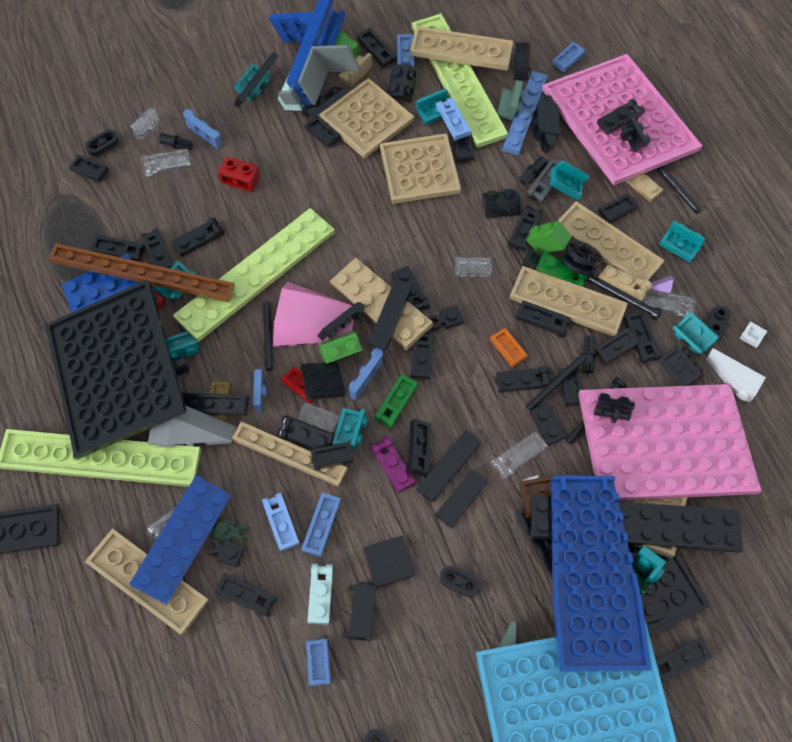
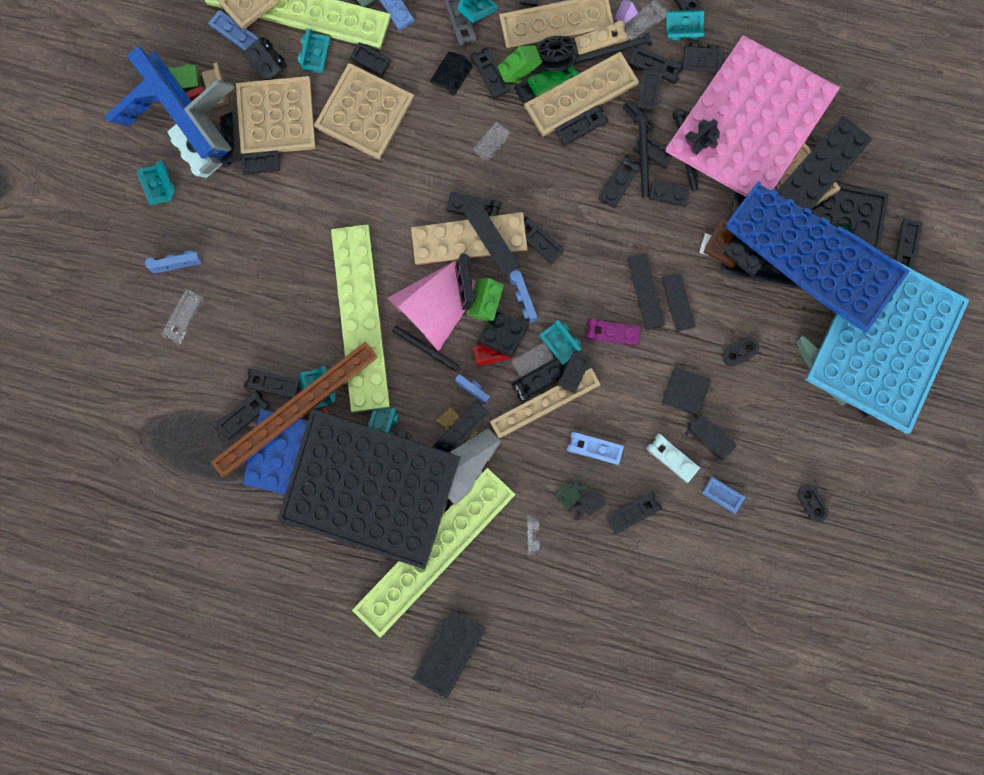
camera: 50 degrees left, 15 degrees up
(89, 168) = (135, 387): black plate -> none
(102, 142) = (113, 359): black plate -> none
(119, 561) = (567, 579): tan plate -> none
(145, 124) = (126, 308): clear arm -> none
(175, 141) = (166, 294): black axle -> none
(180, 540) = (557, 531): blue plate -> none
(198, 237) = (284, 341): black plate -> none
(239, 174) = (248, 263): red brick -> none
(254, 81) = (161, 180): black tile -> none
(321, 525) = (621, 419): medium blue plate -> none
(376, 47) = (205, 51): black plate -> none
(396, 400) = (563, 290): green plate -> none
(419, 447) = (616, 302): black plate -> none
(448, 317) = (522, 196): black plate -> none
(453, 118) = (341, 46): light blue plate -> none
(508, 347) = (585, 171): orange plate -> none
(519, 455) = (678, 233): clear plate -> none
(533, 170) = (441, 23): black axle -> none
(650, 563) = (840, 209): teal bracket -> none
(743, 380) = (748, 24): white slope -> none

